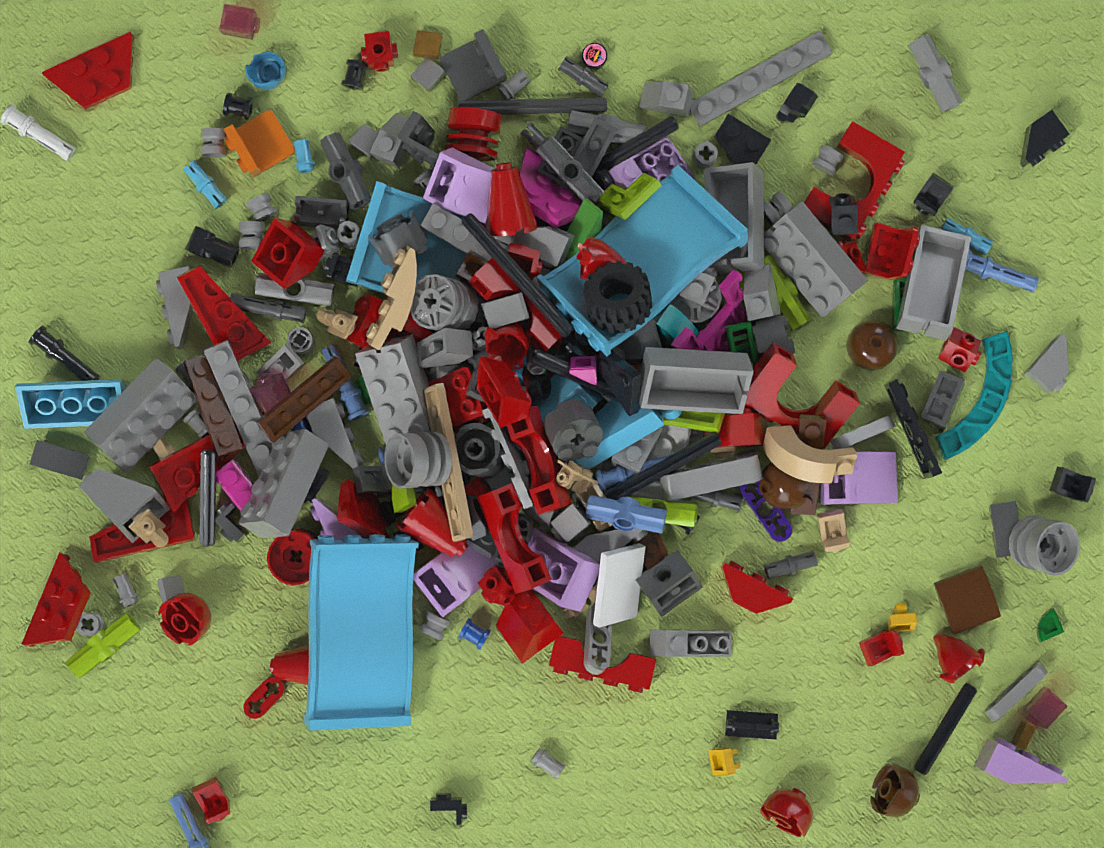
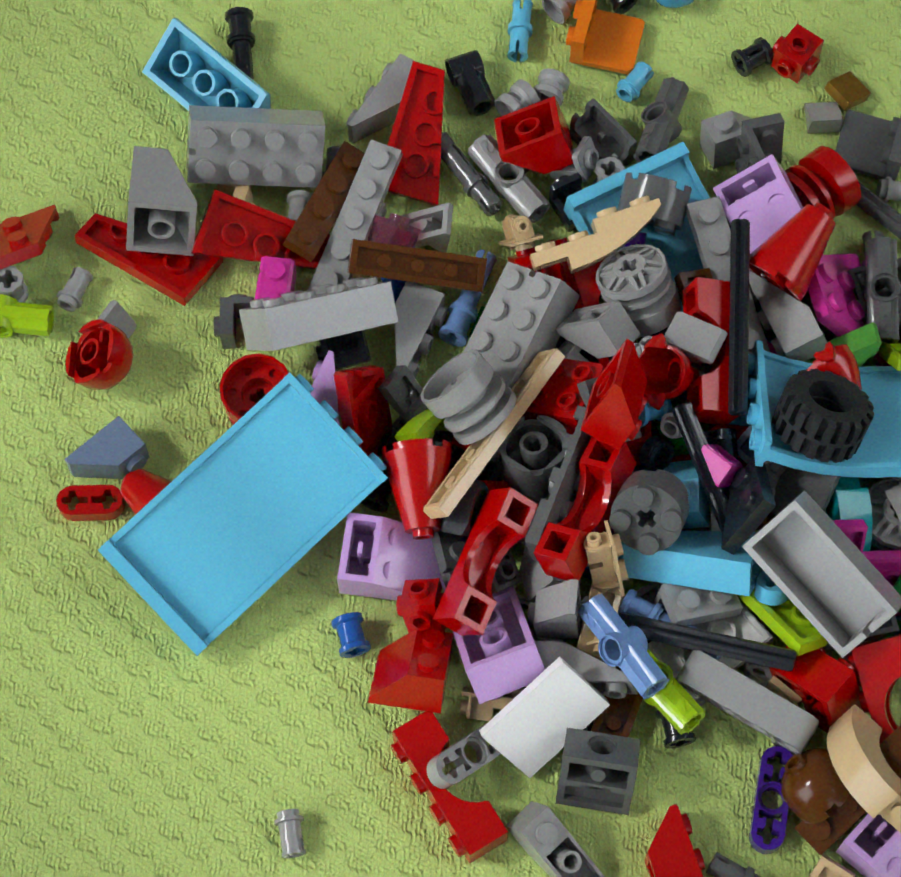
camera: 45 degrees right, 20 degrees down
(59, 459) = (141, 125): dark grey slope -> none
(149, 528) = (155, 242): tan hinge -> none
(207, 497) = (236, 272): axle -> none
(247, 661) = (109, 453): none -> sand blue slope
(304, 343) = (467, 225): light grey wheel -> none
(364, 140) = (700, 111): light grey slope -> none
(434, 625) = (321, 590): light grey wheel -> none
(445, 802) = (150, 767): black bracket -> none
(526, 259) = (762, 316): red bracket -> none
(721, 499) = (731, 739): dark grey pin -> none

